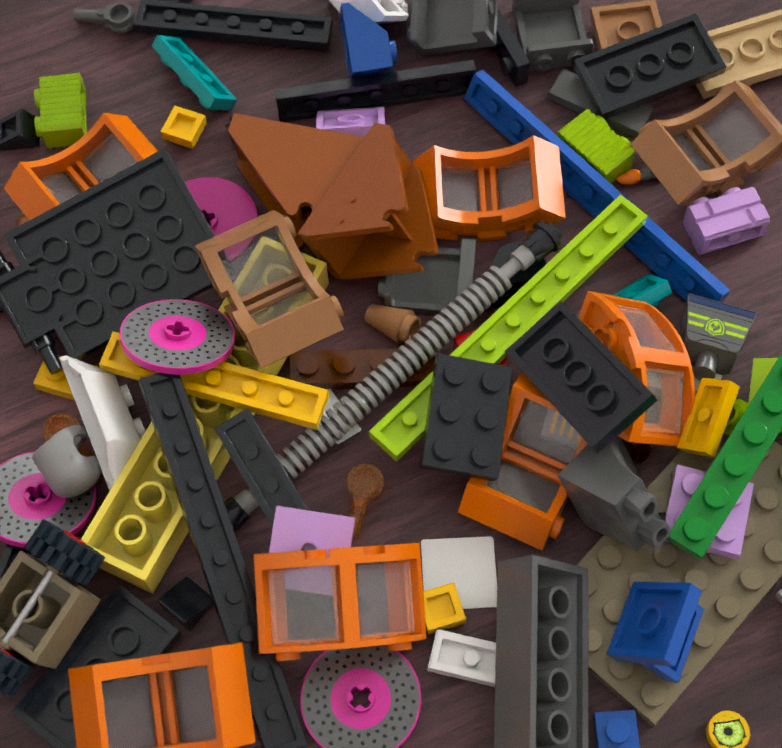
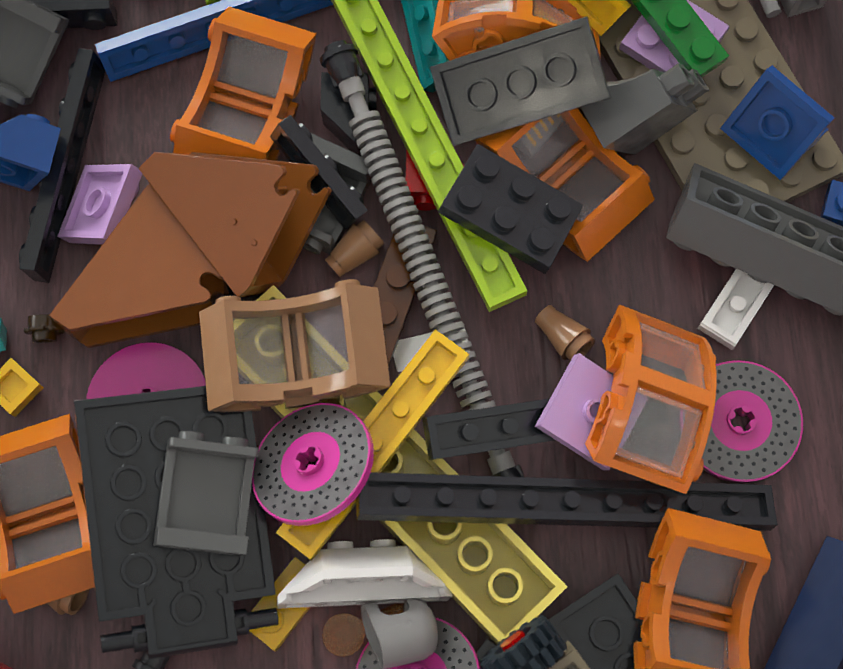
camera: 70 degrees left, 10 degrees up
(124, 271) = (205, 494): none -> dark grey panel
(186, 602) = (585, 558): black slope -> none
(364, 484) = (522, 340): clear orange plate -> none
(381, 519) = (564, 333): none -> medium nougat cone
(442, 263) = (298, 147): none -> black plate
(443, 608) = (680, 309): yellow plate -> none
(465, 562) = (642, 282): white sticker -> none

